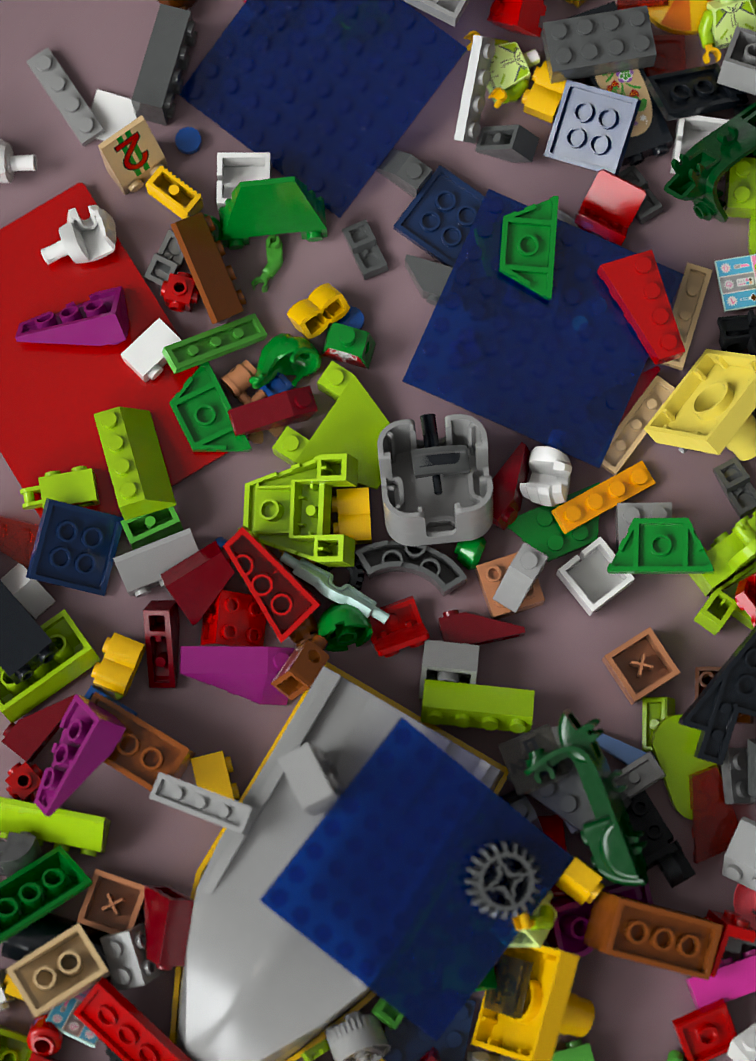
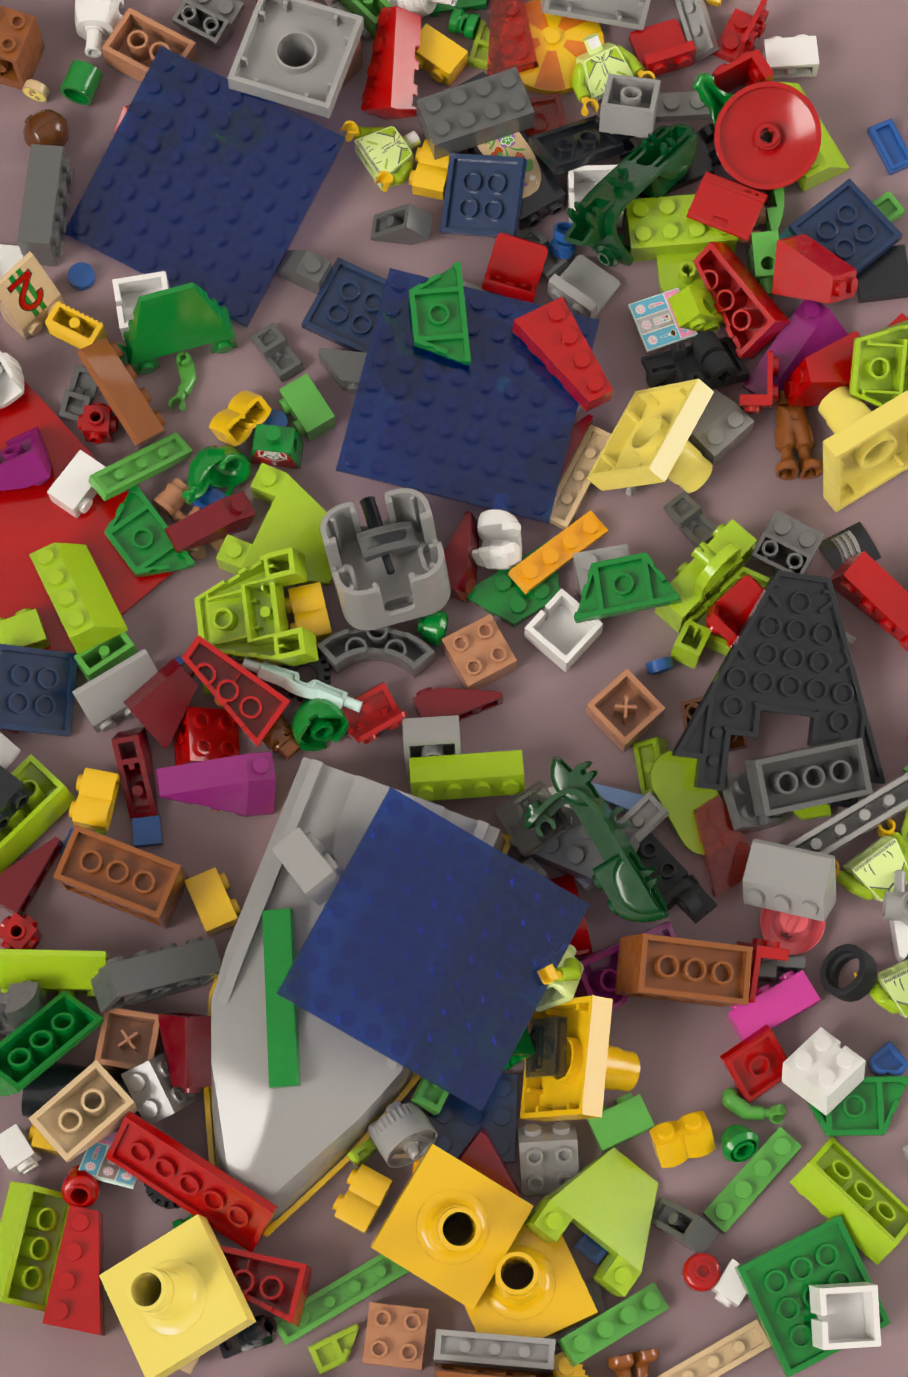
camera: 10 degrees left, 5 degrees down
(85, 743) = (73, 876): magenta wedge -> none
(149, 846) = (156, 974): none -> dark grey brick
(163, 702) = (147, 831): none -> blue tile
(203, 803) = (203, 913): light grey plate -> none
(261, 920) = (280, 1013): none -> green tile
(302, 668) = (281, 767): dark orange torso -> none
(384, 311) = (307, 408): none -> bright green brick
(474, 89) = (359, 182): light grey plate -> none
(512, 900) = (515, 925): dark grey gear -> none
(520, 577) = (487, 638): light grey slope -> none
(580, 882) = (601, 929): yellow brick -> none
(656, 188) = (558, 246): none -> blue wheel
(673, 236) = (583, 287): none -> light grey bracket
(683, 626) = (659, 666): none -> blue tile
(688, 306) = (610, 354): tan plate -> none

